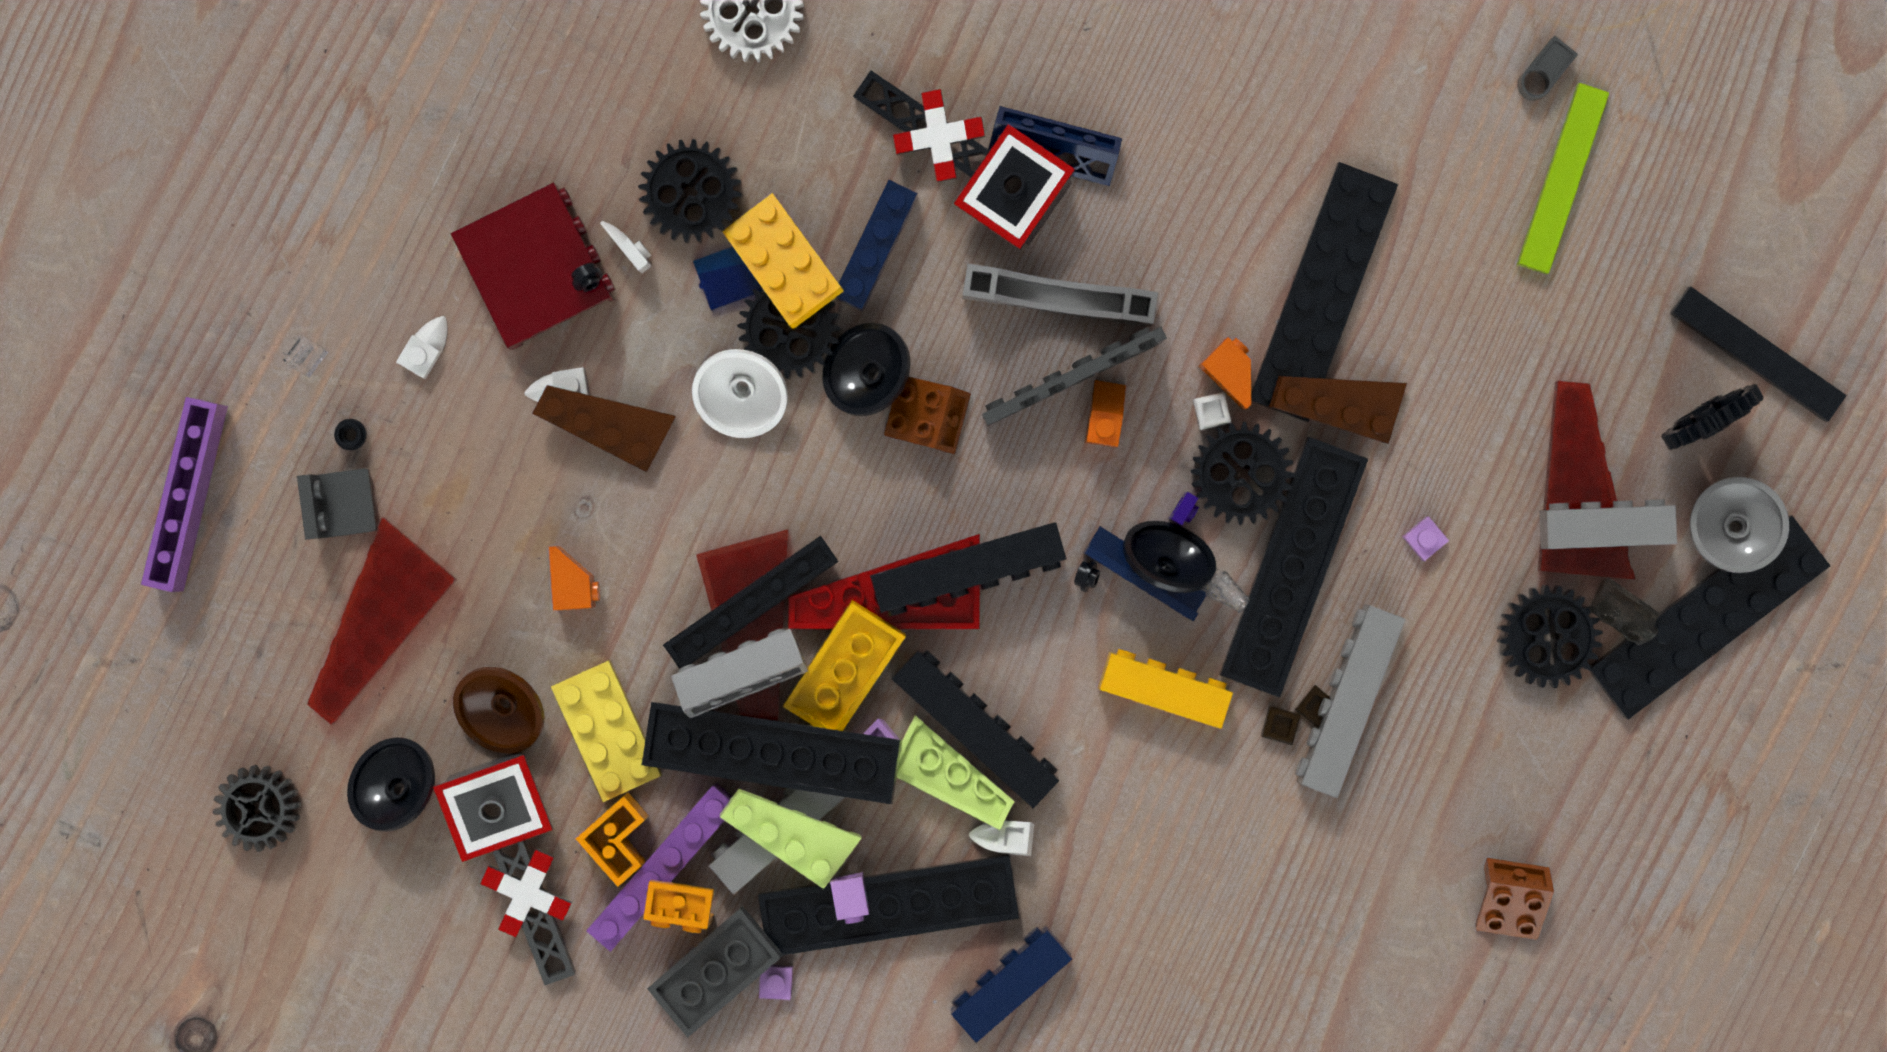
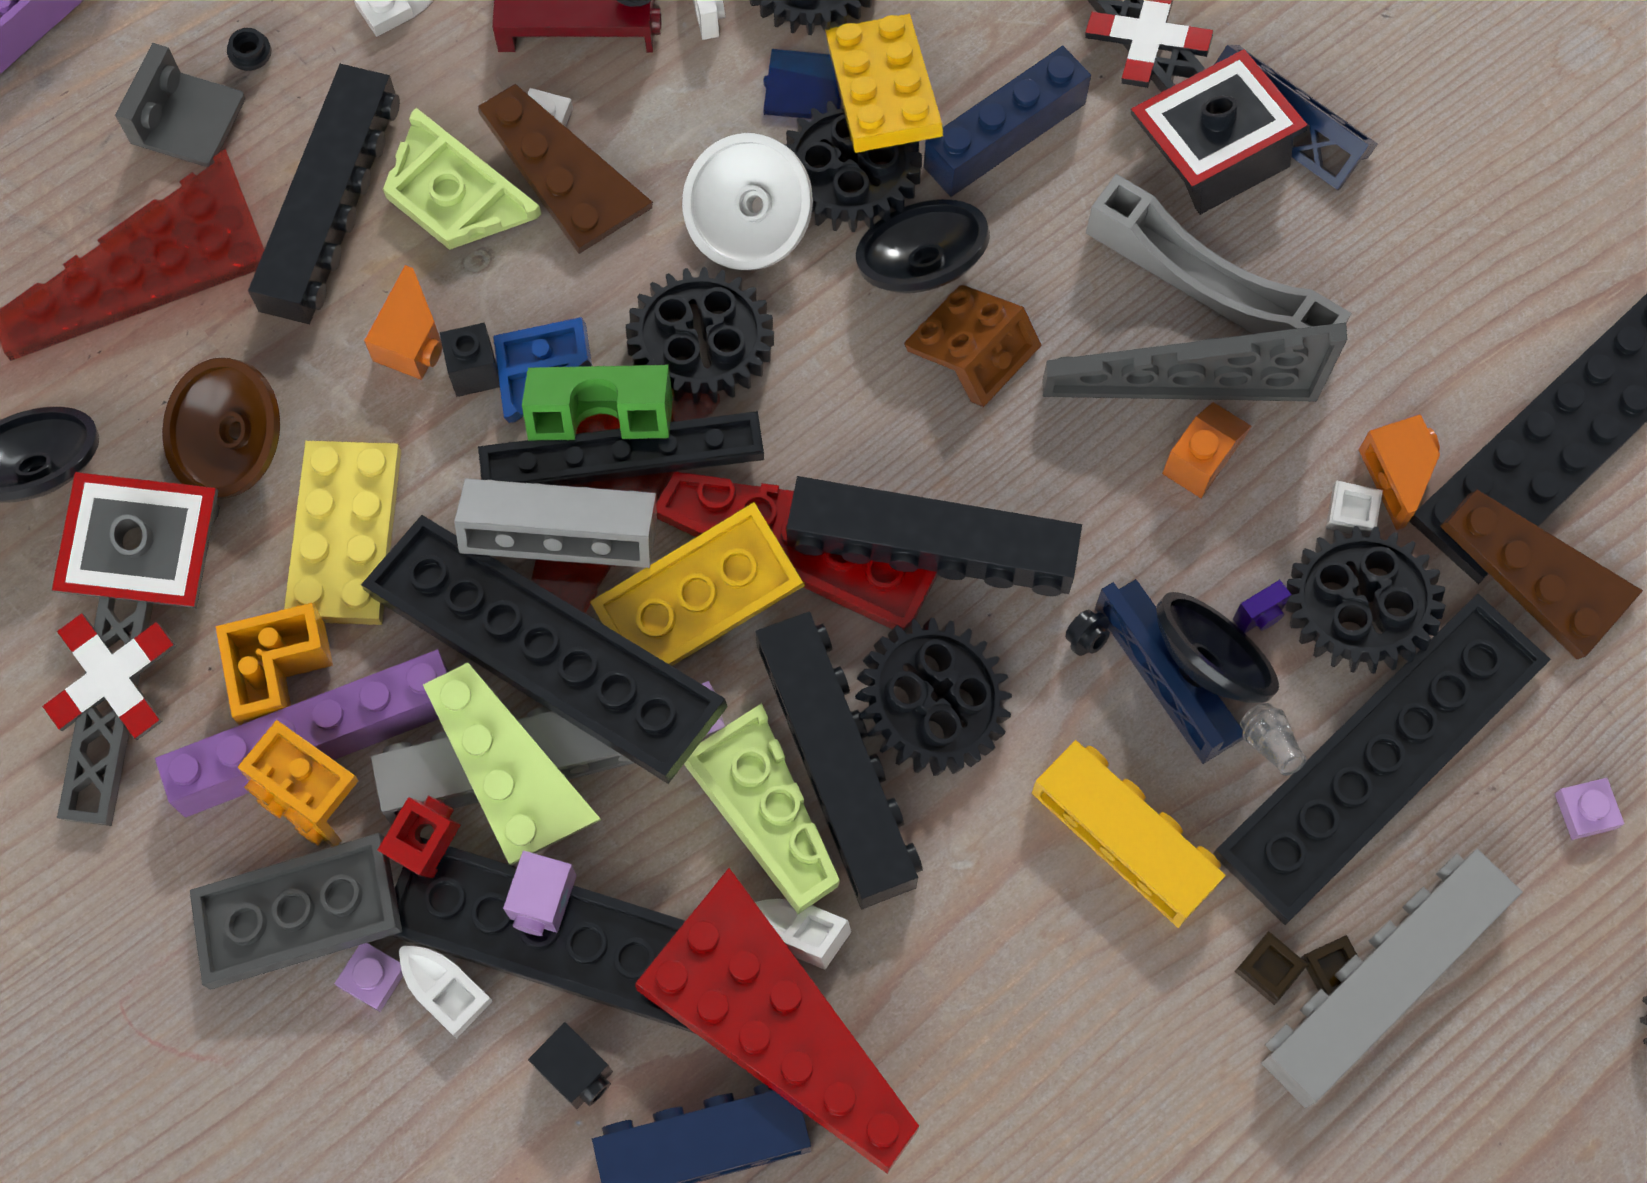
camera: 25 degrees right, 20 degrees down
(464, 514) = (324, 194): none -> black brick
(541, 470) = (452, 188): none -> yellowish green wing
(622, 585) = (470, 359): none -> black brick
(665, 565) = (540, 346): none -> blue wing
(697, 590) = (564, 396): none -> bright green arch
(733, 514) = (741, 327): none -> black gear
(762, 909) = (404, 841): none -> red brick
(821, 970) = (442, 988): none -> white plate
(917, 978) = (572, 1067): none -> black brick
(1002, 897) = (757, 1005): none -> red wing
(1009, 691) = (908, 724): none -> black gear

